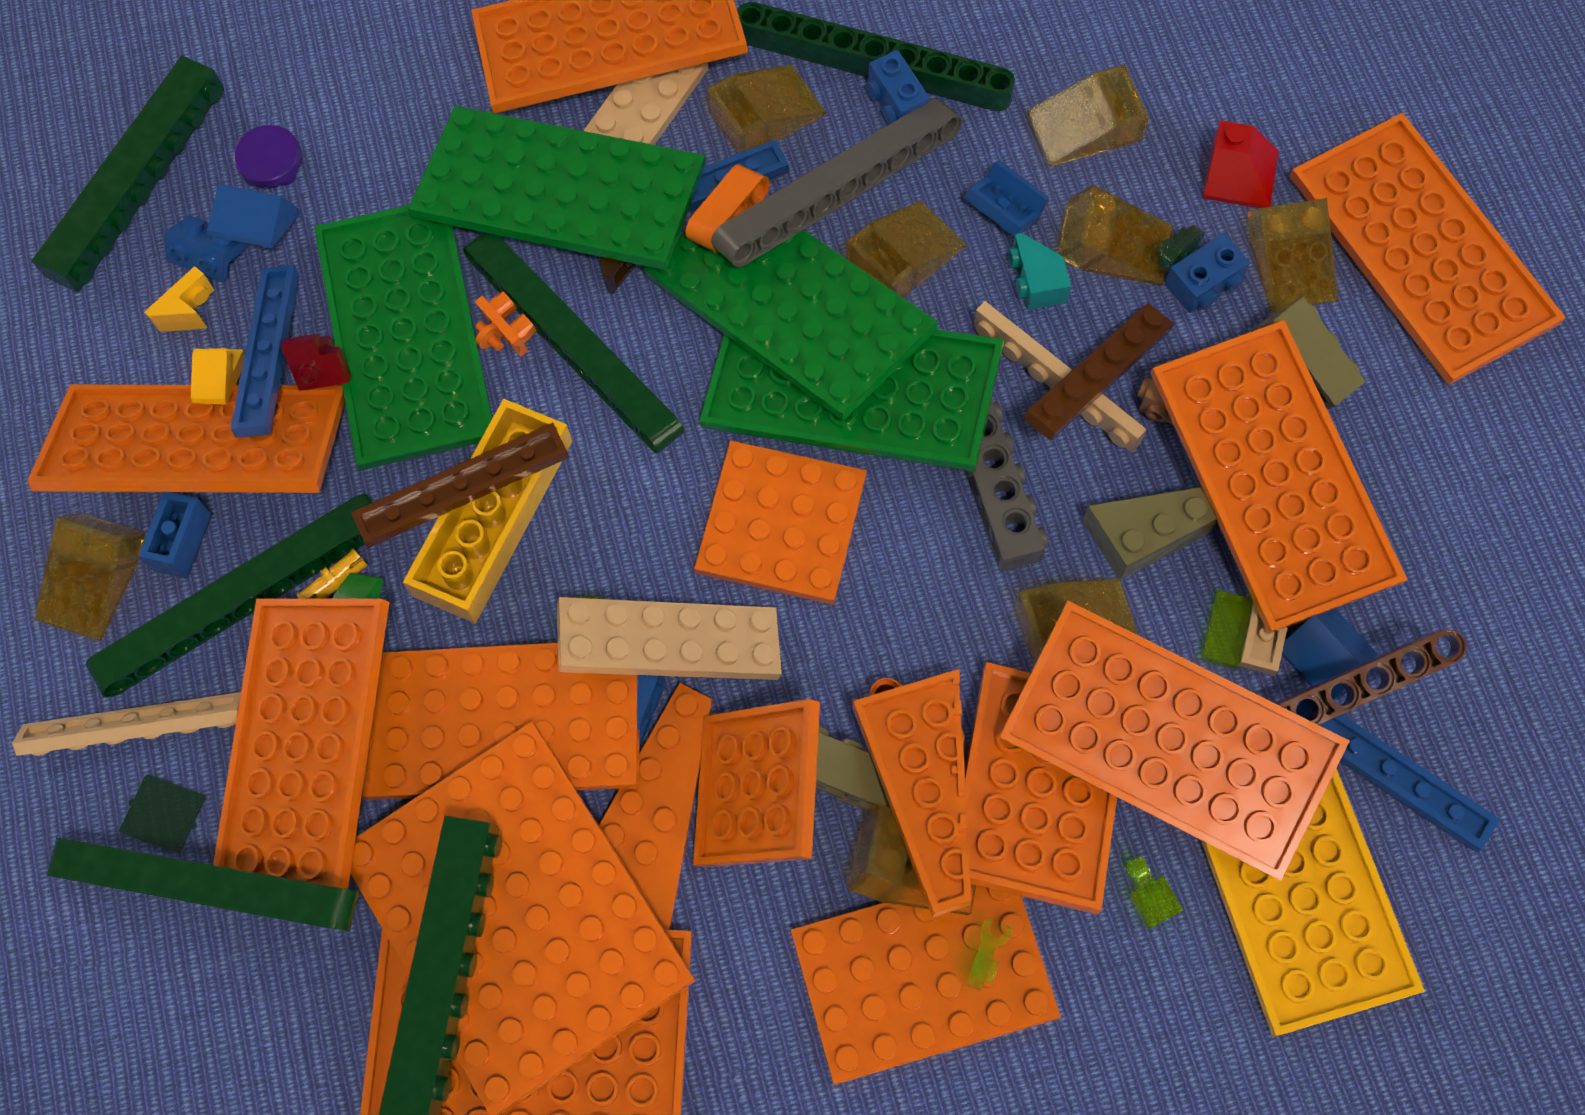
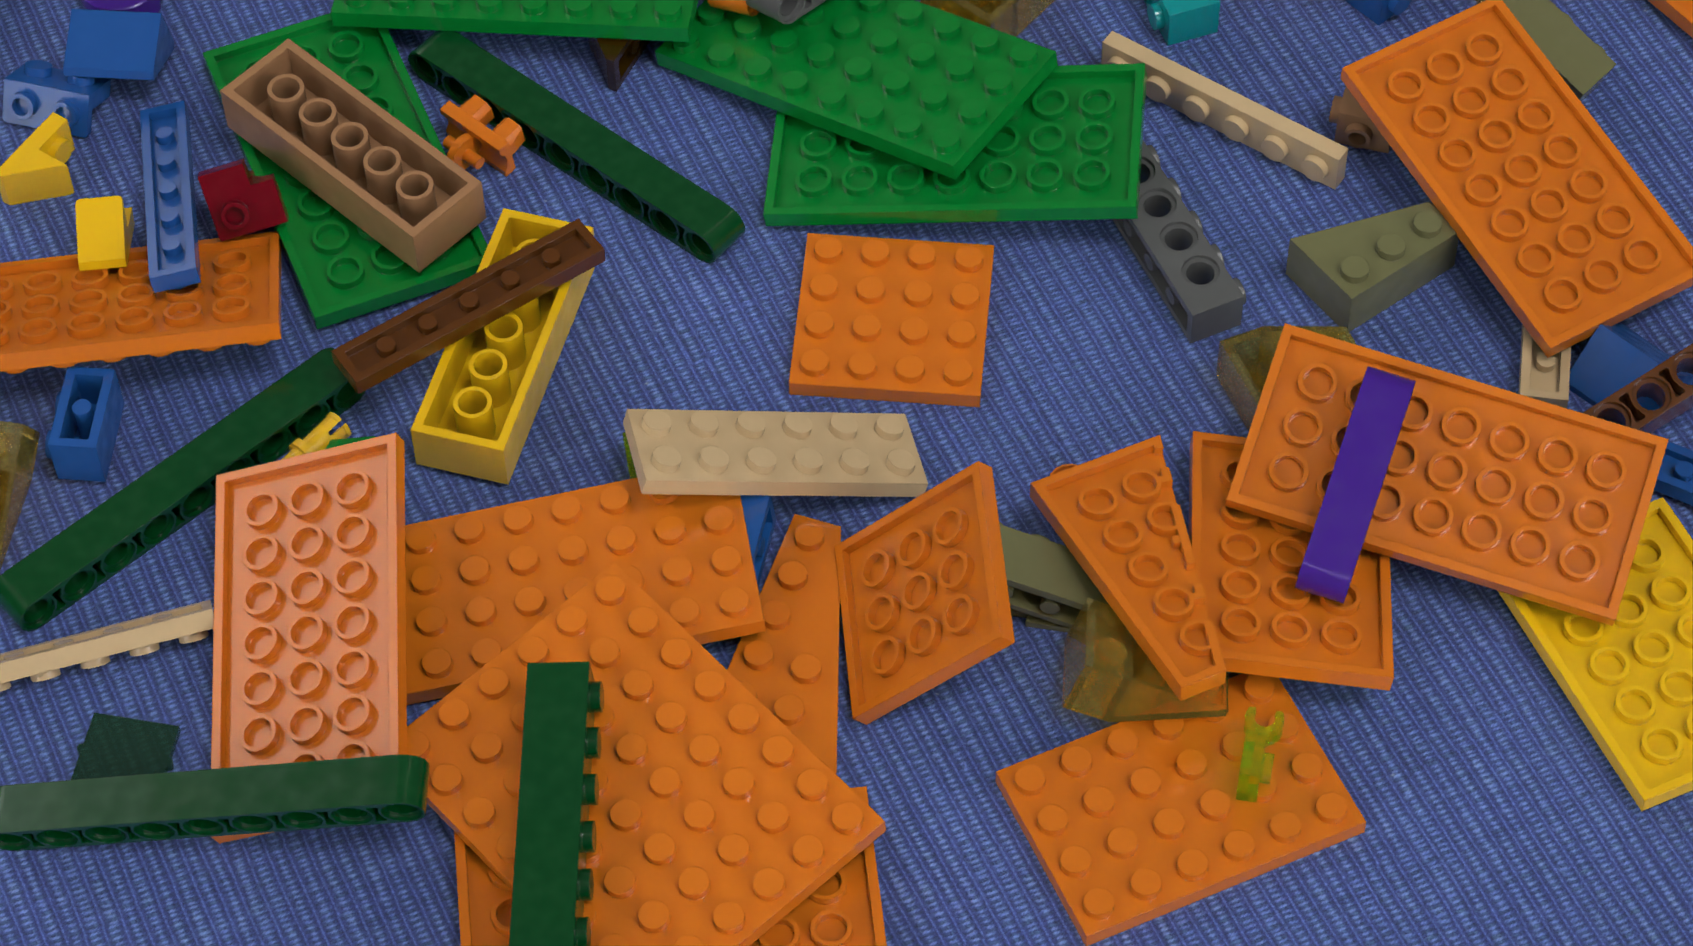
camera: 10 degrees left, 15 degrees down
(402, 336) = (354, 155): none -> medium nougat brick
(1098, 372) = (1274, 90): reddish brown plate -> none
(1099, 746) = (1355, 484): none -> dark purple beam
(1153, 899) = (1456, 678): clear neon green plate -> none
(1226, 630) = (1496, 356): clear neon green tile -> none

